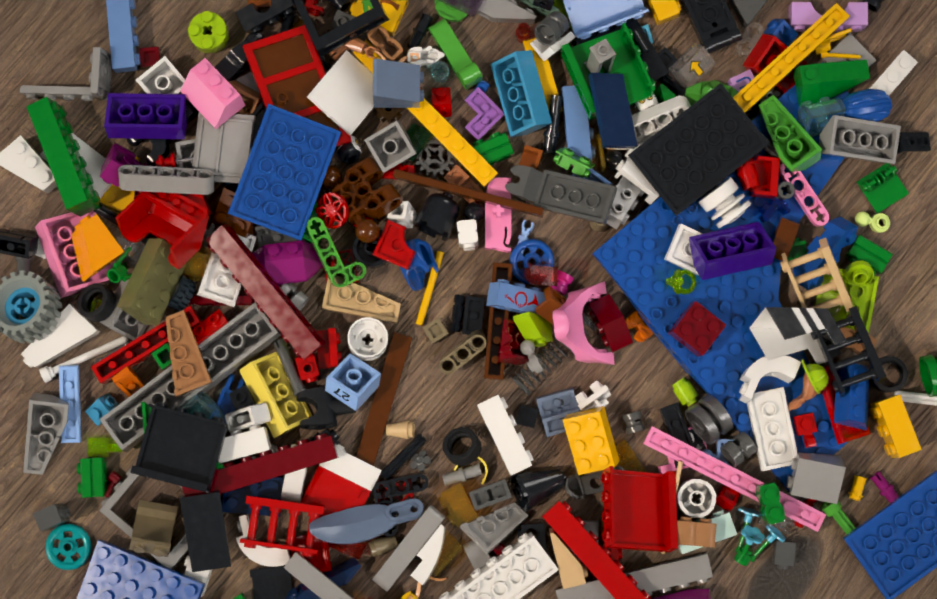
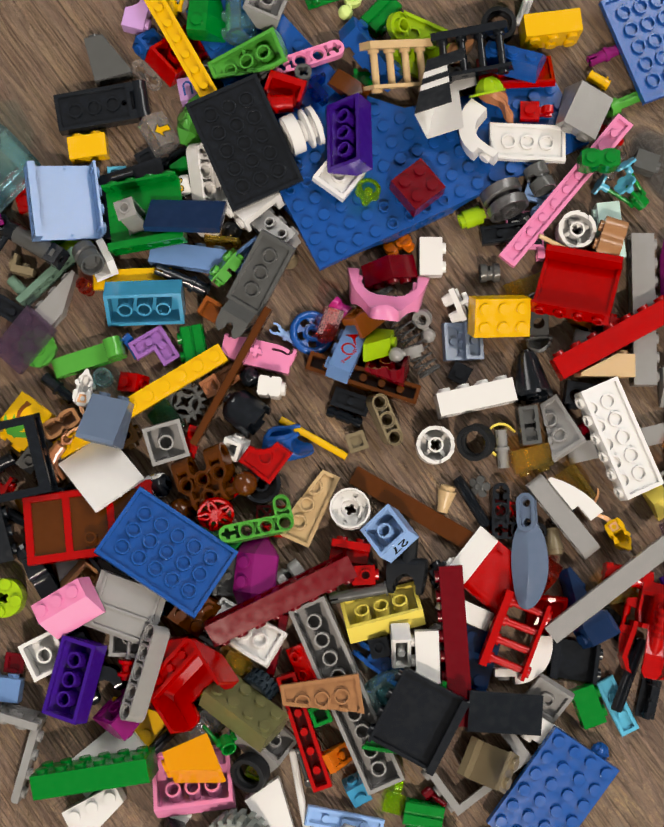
camera: 80 degrees left, 0 degrees up
(231, 578) = (555, 697): none -> light grey plate
(447, 396) = (443, 437): none -> white brick
(558, 376) = (427, 333): none -> light grey plate
(634, 361) = (431, 257): none -> white brick
(727, 498) = (580, 202): red slope -> none

